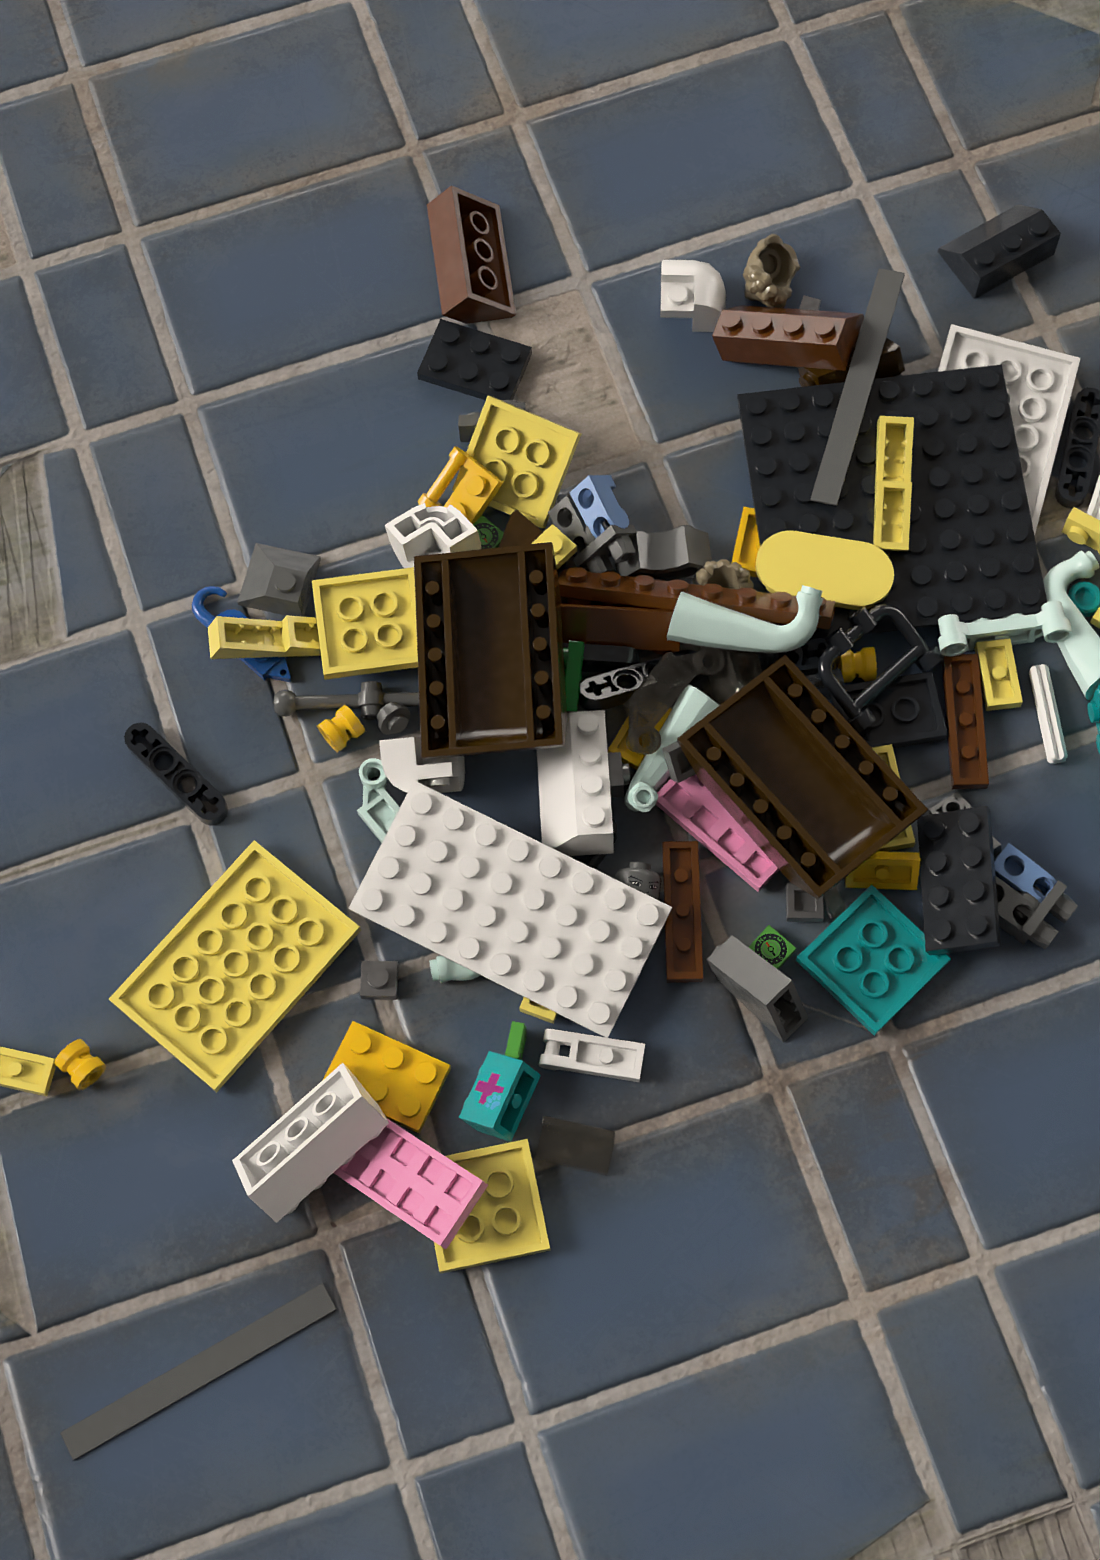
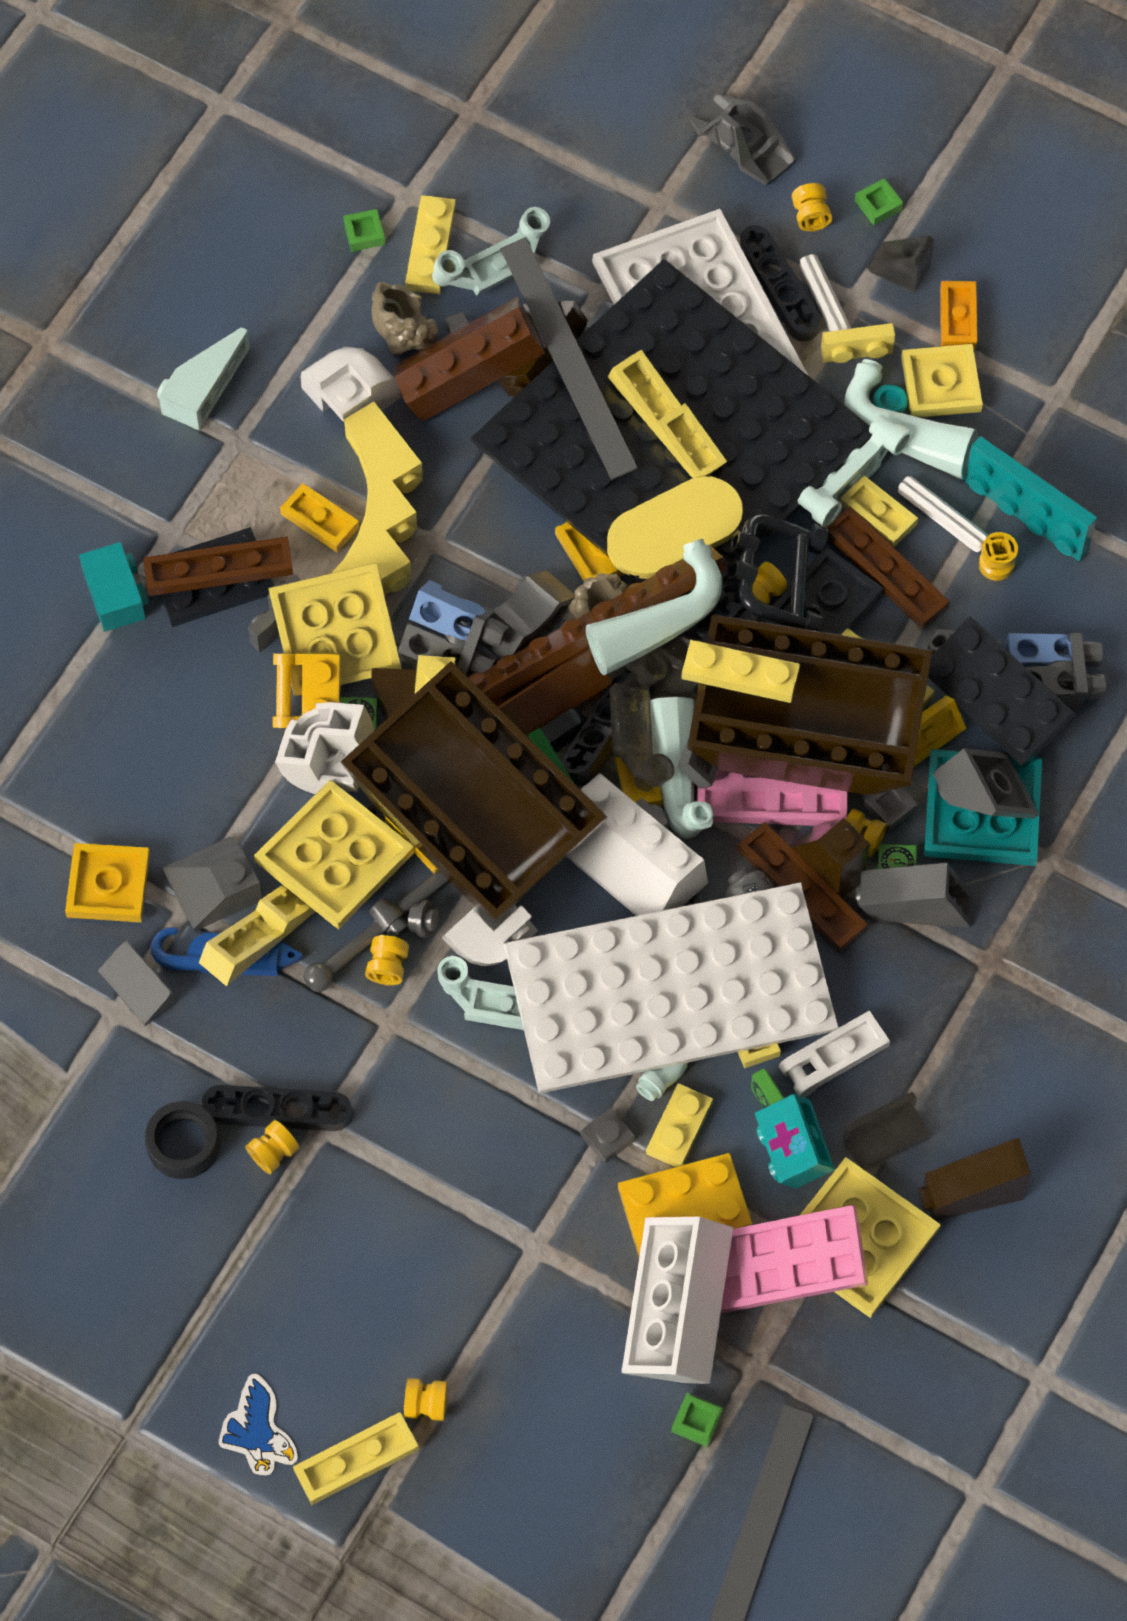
camera: 45 degrees left, 5 degrees down
(81, 722) = (178, 1112): none -> black tyre
(144, 798) = (271, 1148): none -> yellow wheel
(164, 611) = (136, 983): none -> slope
(208, 524) = (107, 882): none -> yellow plate
(235, 965) = (478, 1218): light yellow plate -> none
(251, 1240) = (697, 1420): none -> bright green tile
(399, 319) = (113, 587): none -> teal brick
(435, 1015) = (679, 1126): none -> light yellow plate
(470, 257) = (125, 490): reddish brown slope -> none
(477, 356) = (218, 566): none -> reddish brown plate
(585, 375) = (319, 517): none -> yellow plate
(590, 218) = (201, 380): none -> light aqua slope
(601, 1238) = (976, 1182): none -> dark brown slope
(629, 410) = (389, 517): none -> light yellow arch
(719, 907) = (835, 854): none -> dark brown slope
(763, 906) = (874, 832): none -> yellow wheel
(765, 713) = (740, 671): none -> light yellow plate
(806, 191) = (364, 230): none -> bright green tile
(845, 235) = (429, 241): none -> light yellow plate
(859, 278) = (488, 266): none -> light aqua plate
(883, 945) = (984, 784): none -> dark grey slope
(1001, 248) = (570, 163): black slope -> none
(1055, 784) = (1000, 564): none -> yellow wheel

